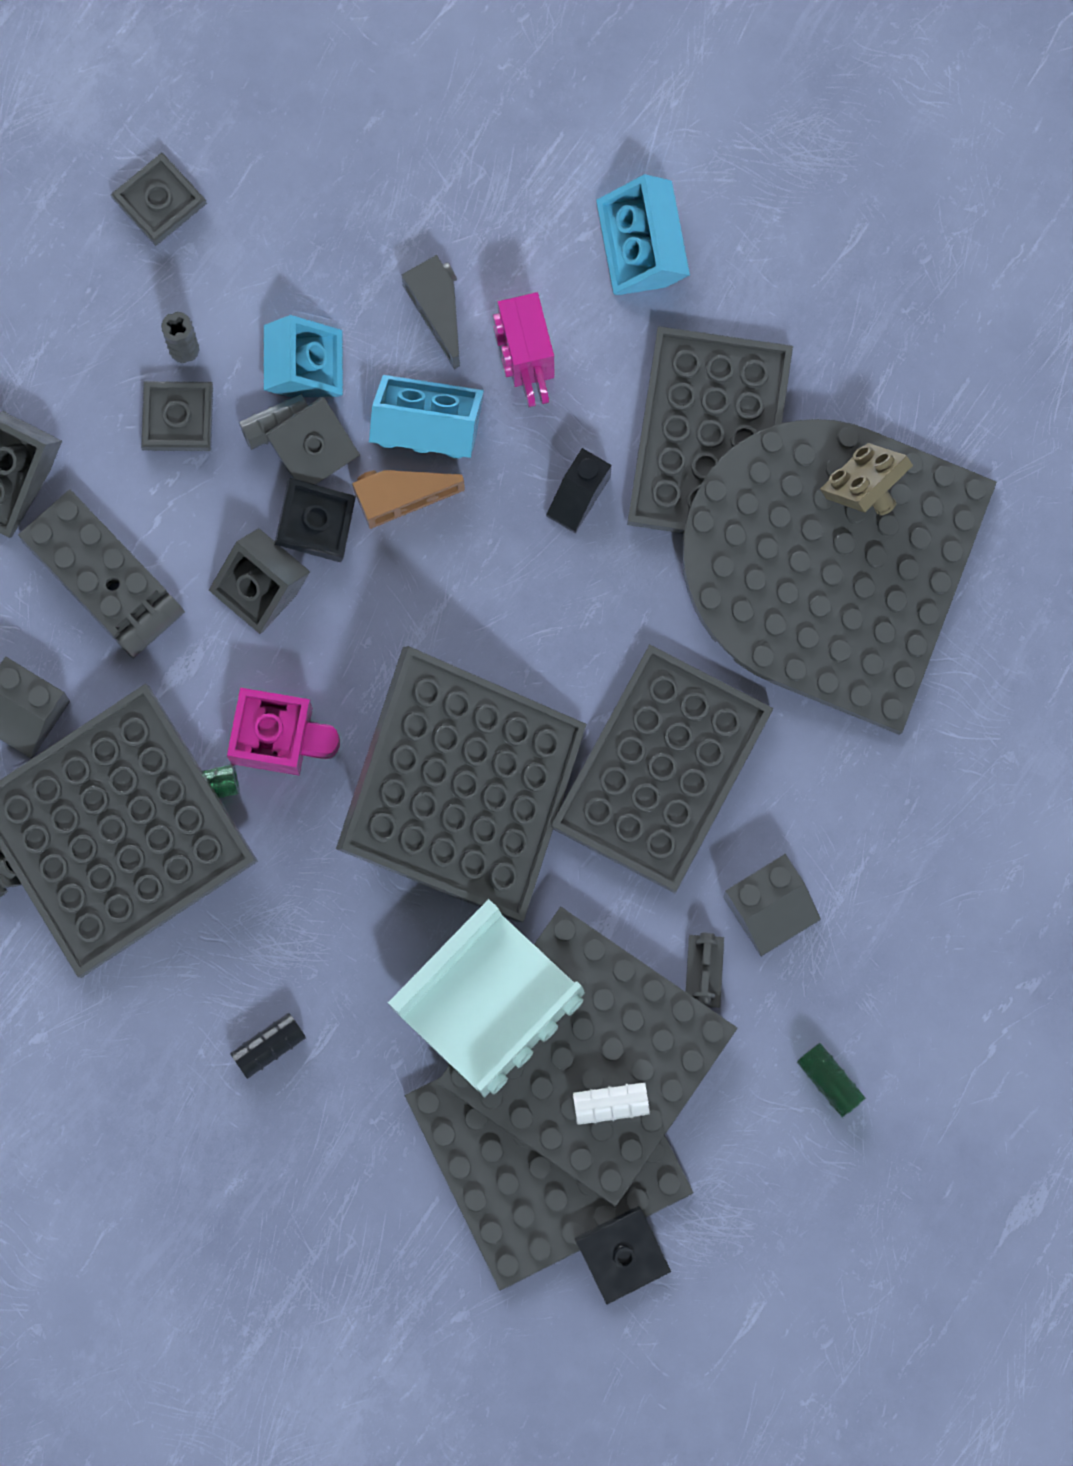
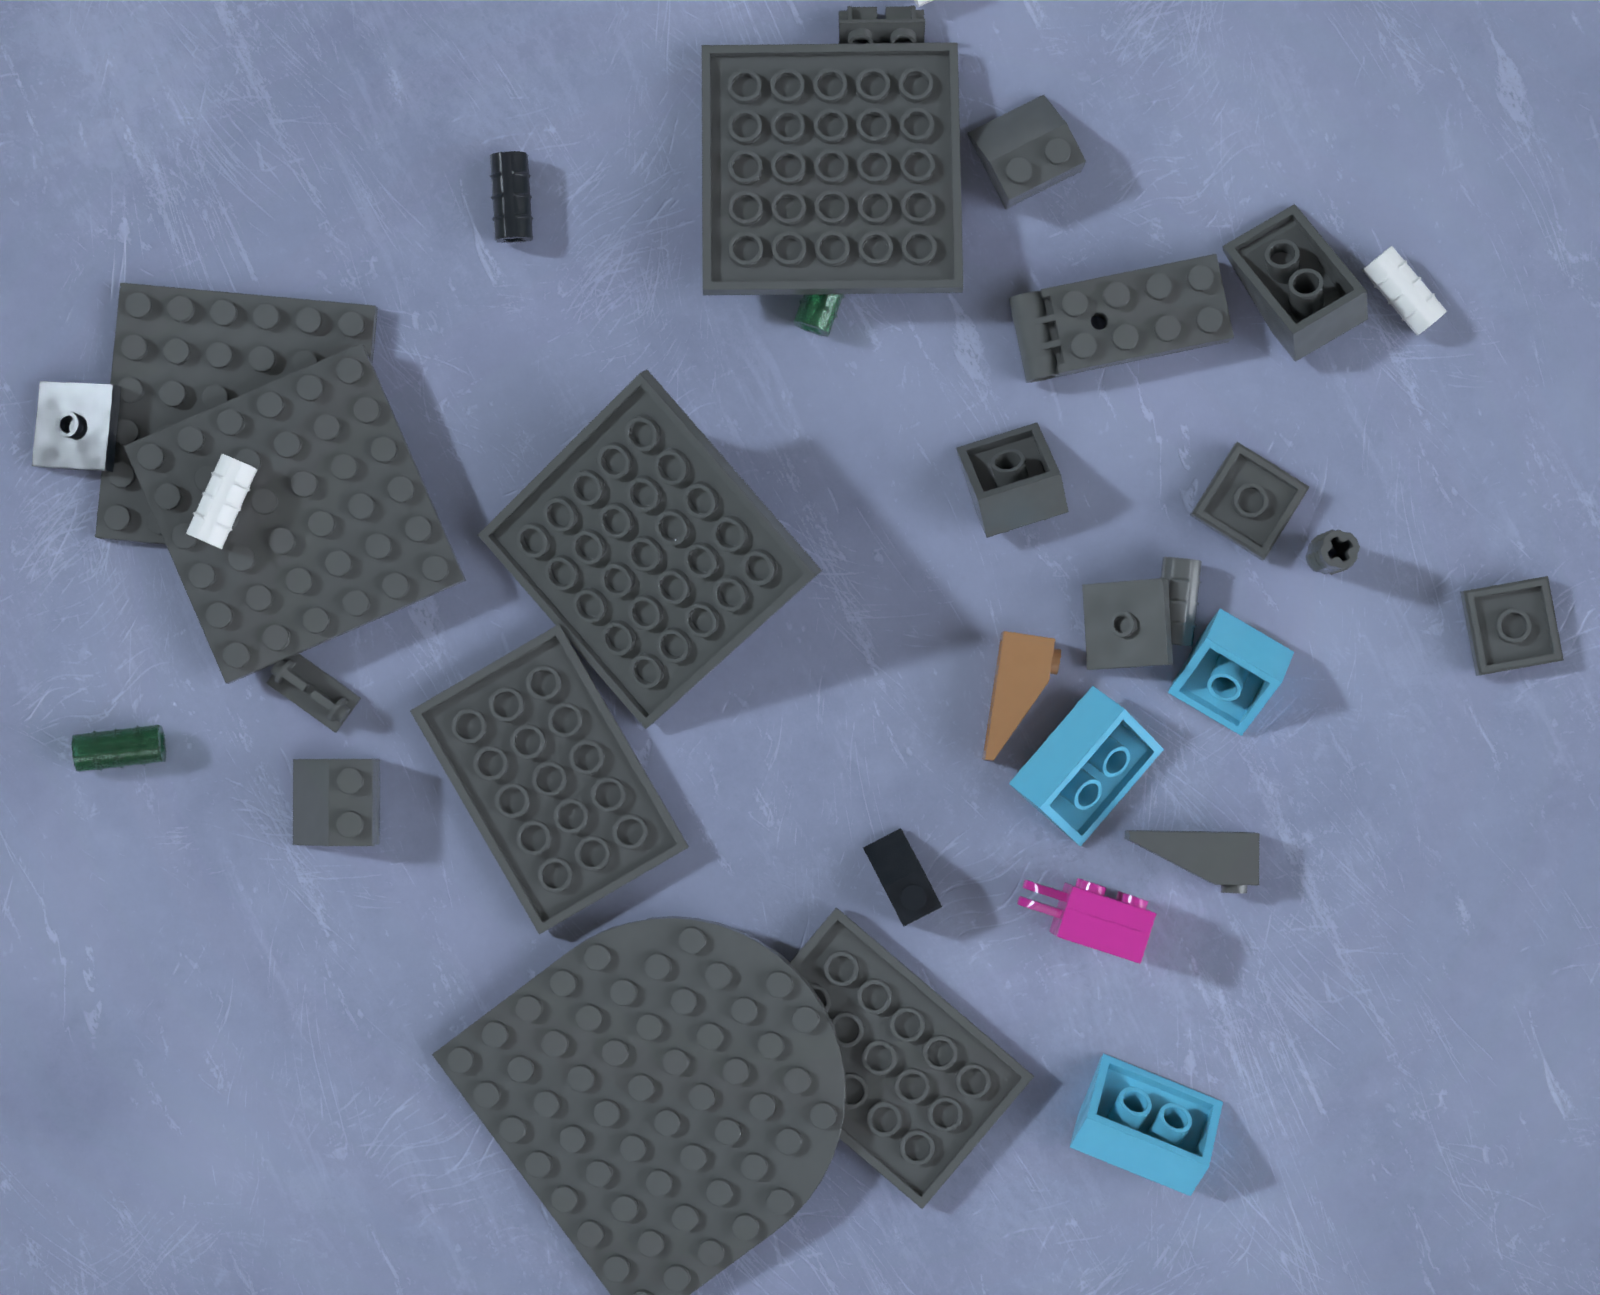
camera: 120 degrees right, 10 degrees up
(277, 732) = (830, 399): dark pink brick -> none
(315, 520) = (1041, 577): black plate -> none
(487, 999) = (407, 443): light aqua panel -> none
(867, 479) = (712, 1189): dark tan plate -> none

